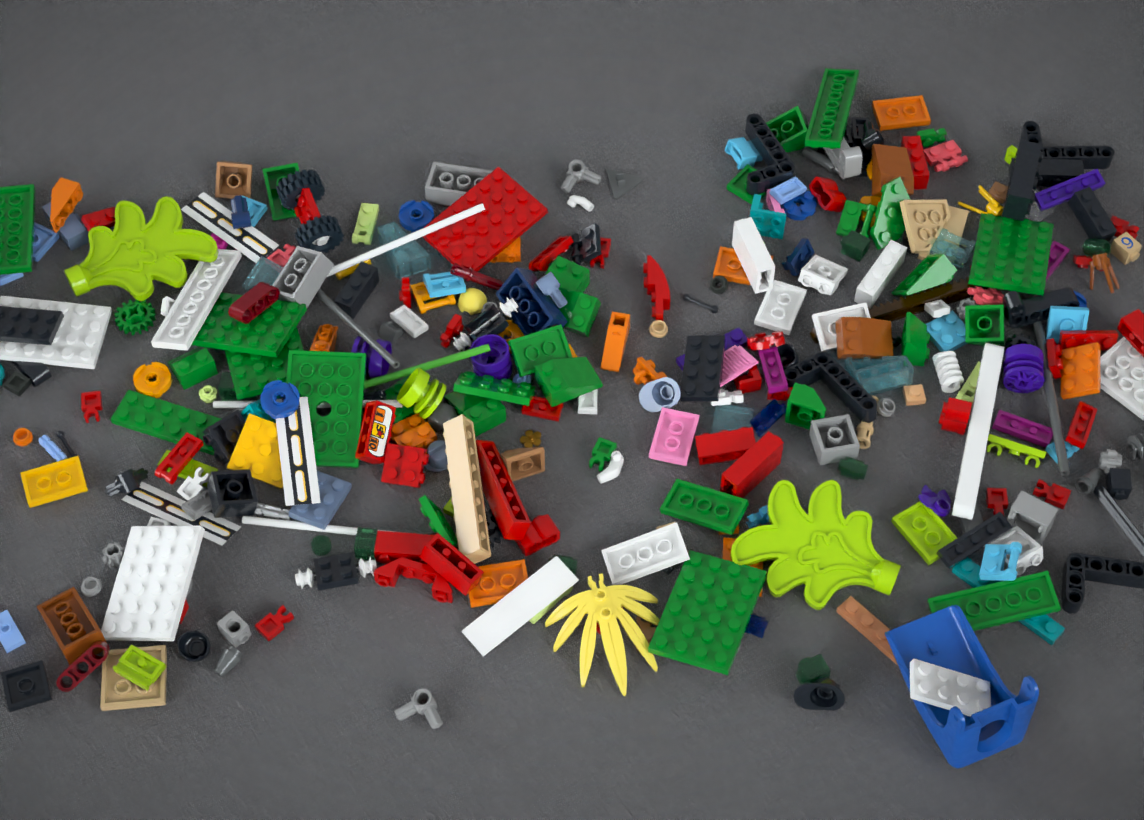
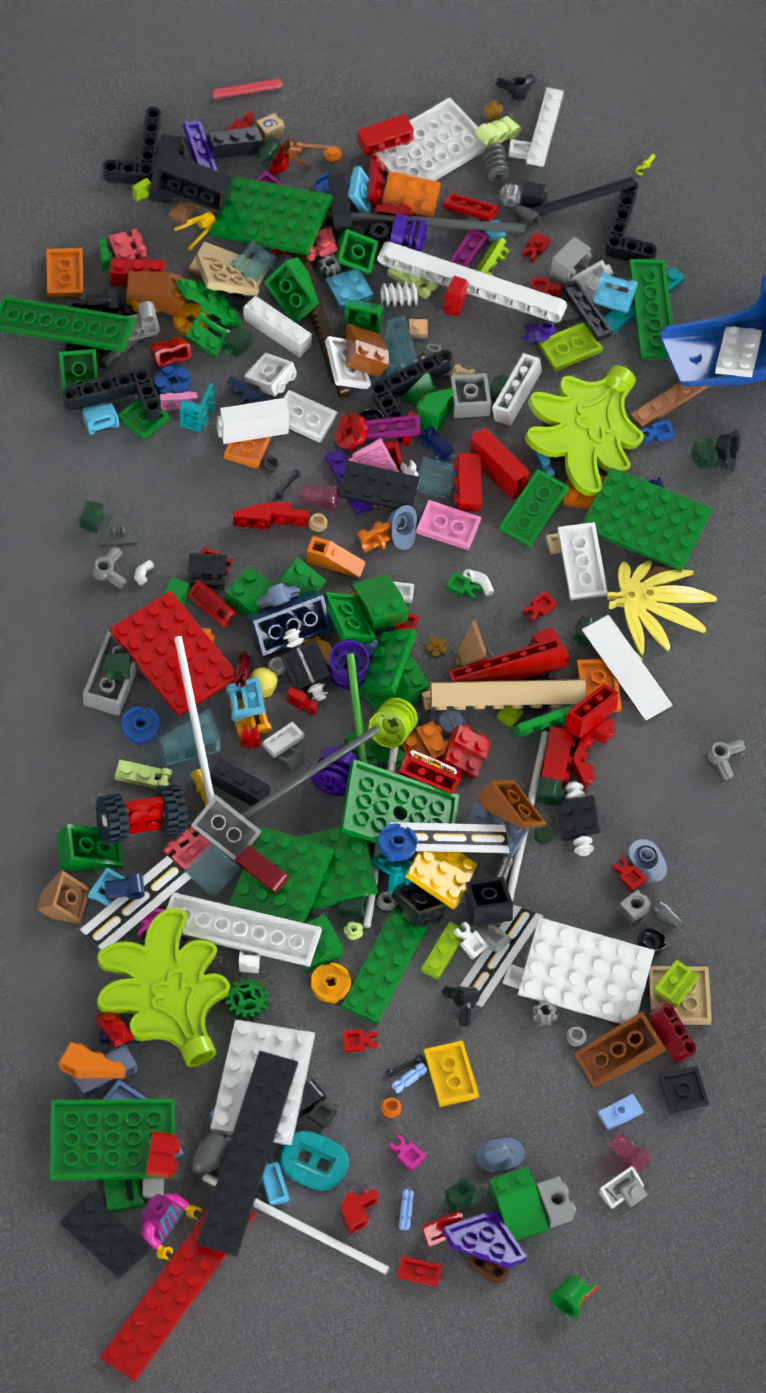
camera: 90 degrees left, 5 degrees up
(178, 458) = (441, 950): red plate -> none
(292, 638) = (648, 859): none -> sand blue piece
(325, 338) = (307, 818): orange slope -> none
(337, 504) = (511, 804): none -> dark orange slope
(459, 177) = (117, 666): none -> clear green brick
(557, 225) = (178, 588): none -> green brick
(588, 525) = (540, 605): none -> red plate
(632, 157) = (91, 516): none -> clear green brick
(688, 325) = (326, 497): none -> clear pink piece
(788, 190) = (165, 382): light blue tile -> none
(831, 397) = (419, 390): none -> green piece
(832, 625) = (660, 431): none -> blue plate
(853, 480) = (517, 389): none -> white brick
(937, 308) = (327, 288): white plate -> none
(1113, 304) = (333, 154): none -> orange plate

